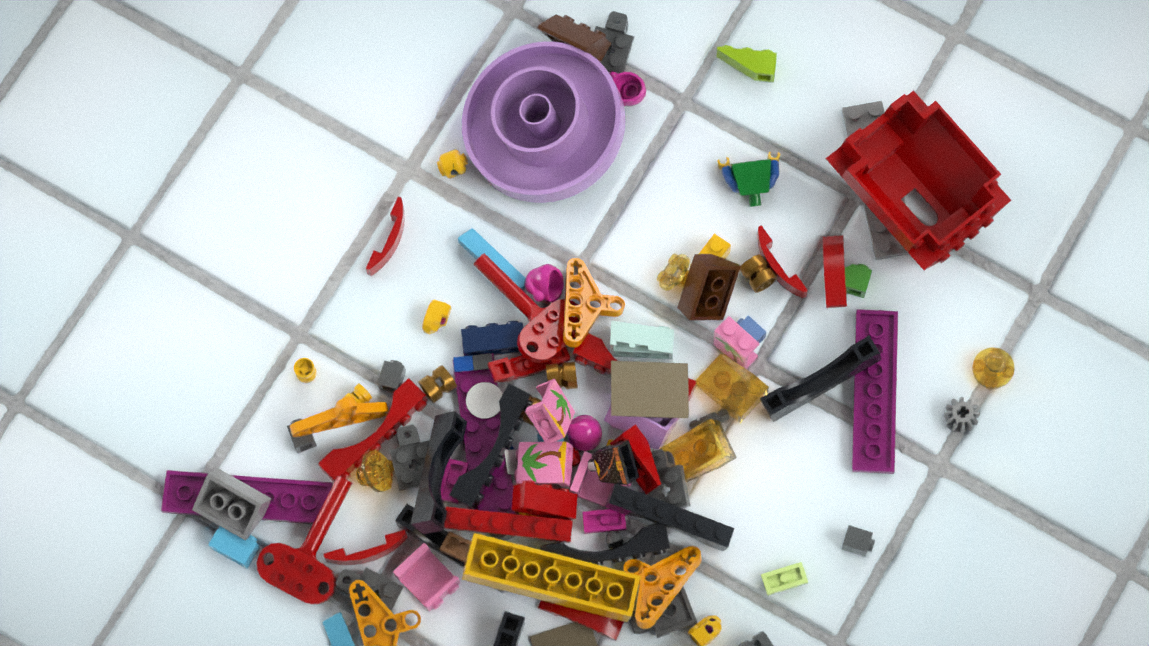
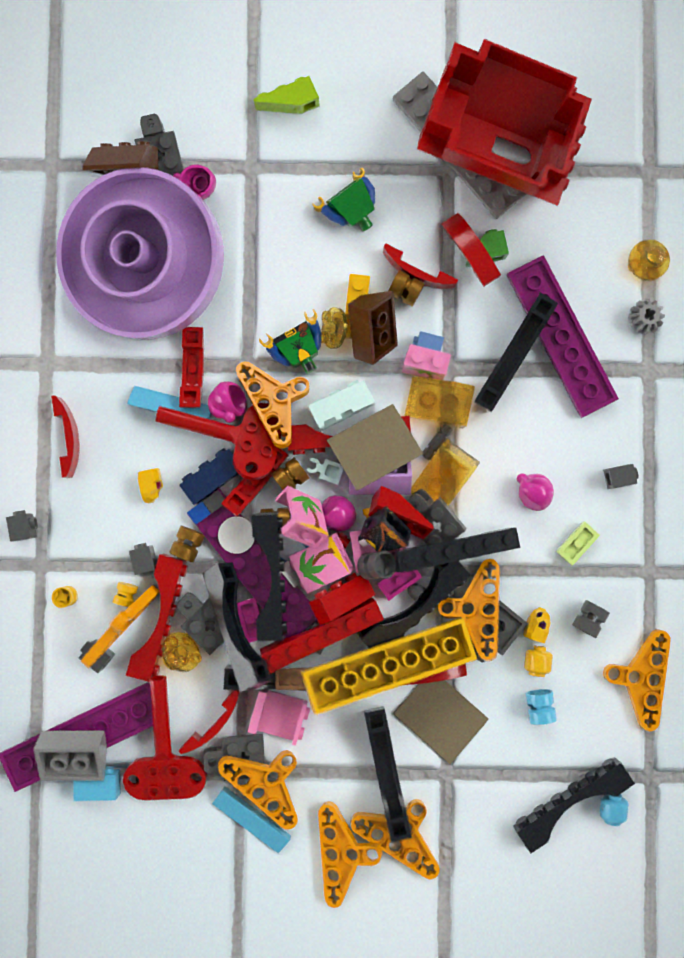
camera: 40 degrees left, 15 degrees up
(305, 291) = (21, 526): none -> dark grey brick
(452, 163) = (82, 338): yellow head -> none
(532, 239) = (192, 367): none -> red slope
(591, 490) = (376, 565): none -> dark grey wheel
(598, 392) = (329, 471): none -> light aqua plate
(633, 269) = (297, 345): none -> torso
(772, 511) = (535, 491): none -> dark pink piece

